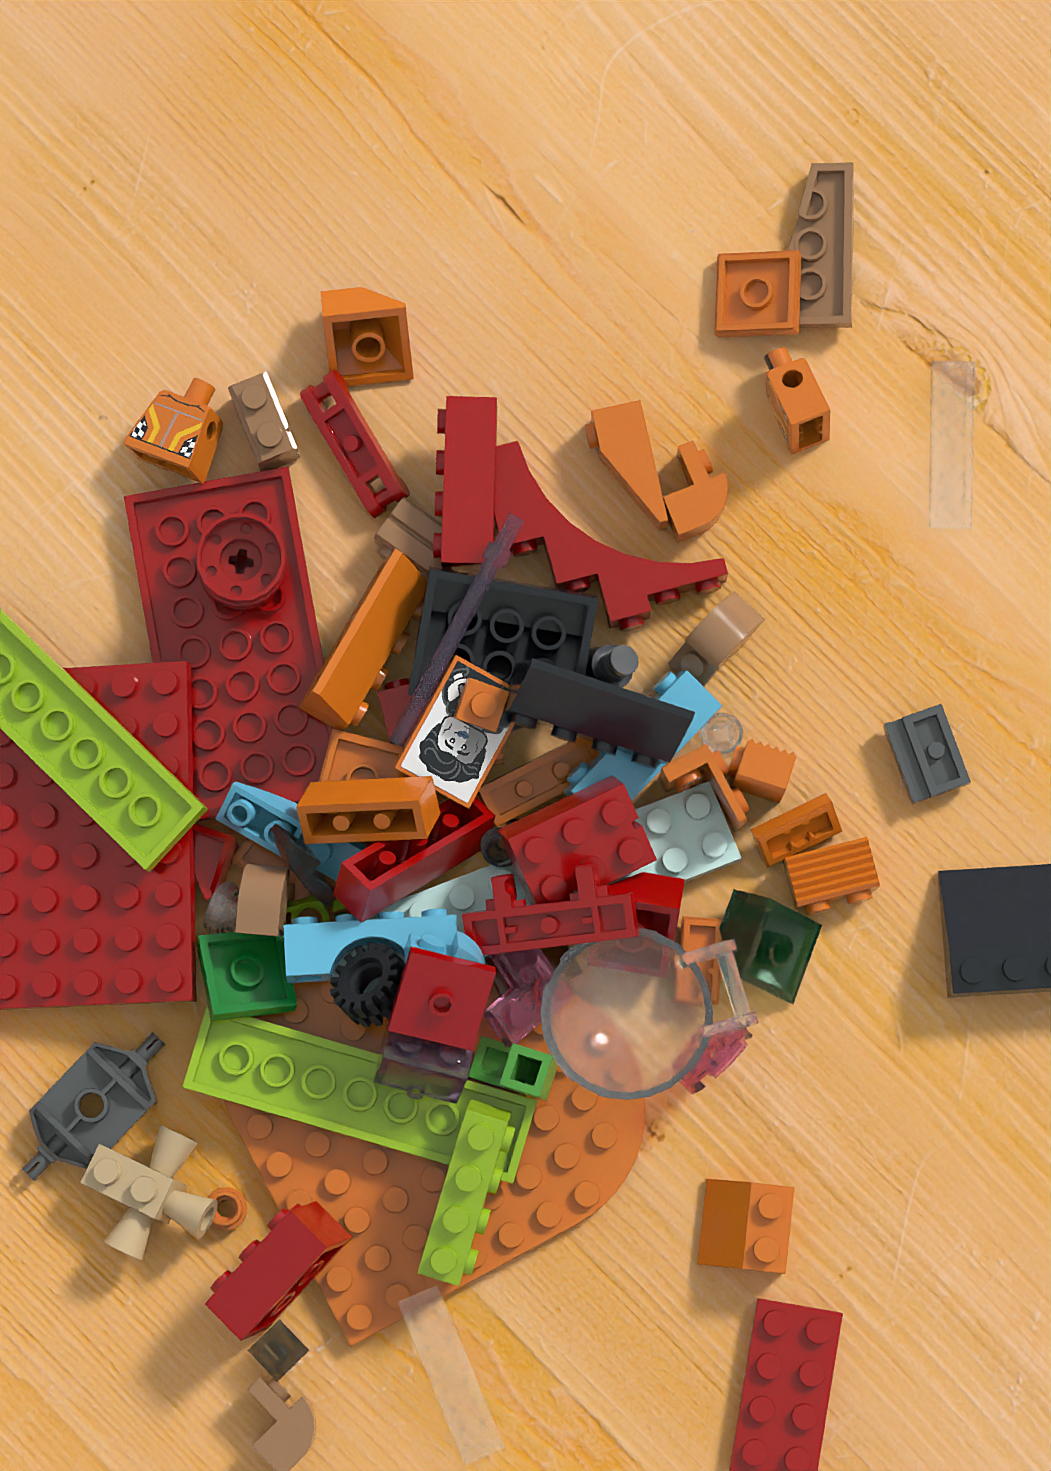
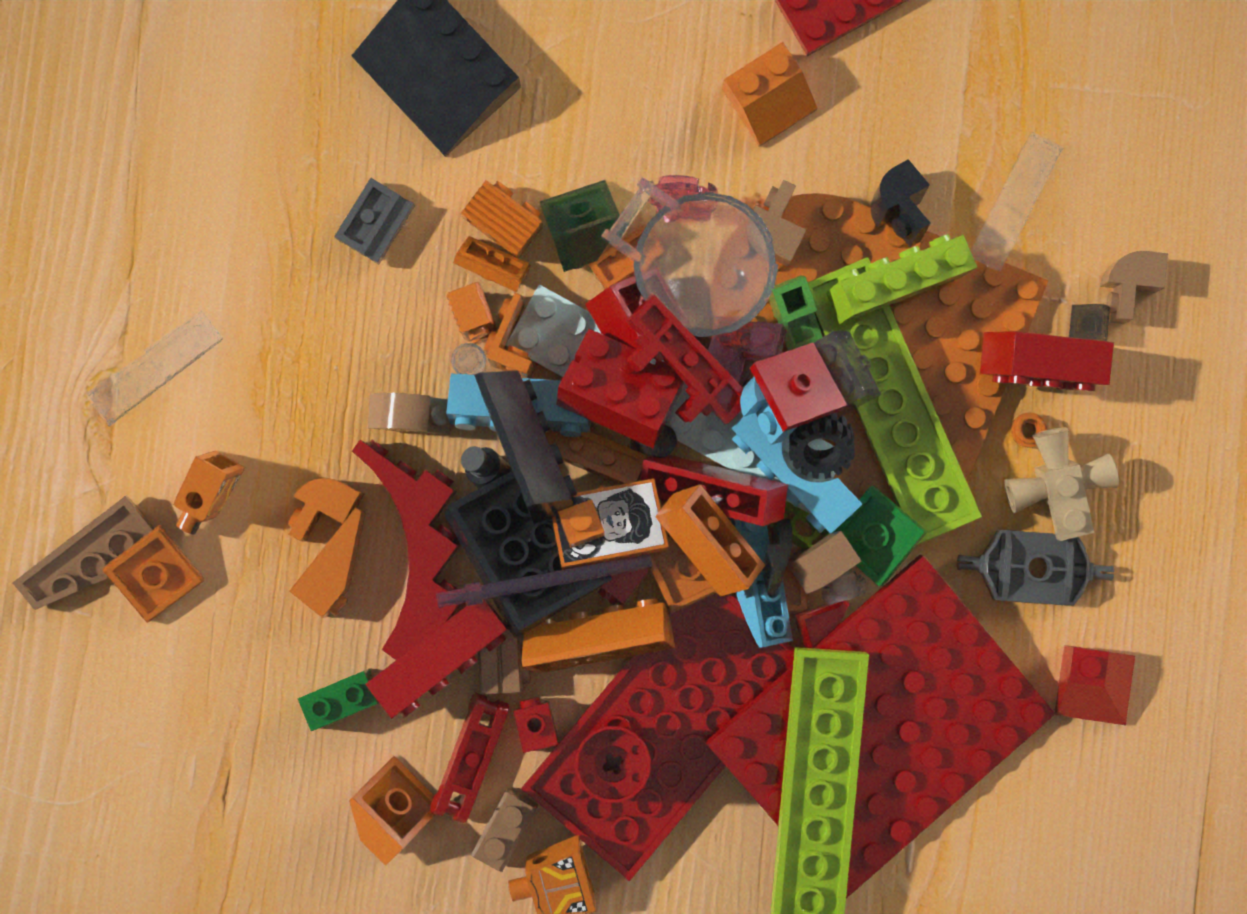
camera: 130 degrees left, 5 degrees up
(334, 526) = (535, 725): none -> red brick
(505, 365) = (337, 700): none -> green brick
(549, 1260) = (897, 202): none -> black brick
(602, 1115) = (784, 233): none -> medium nougat brick

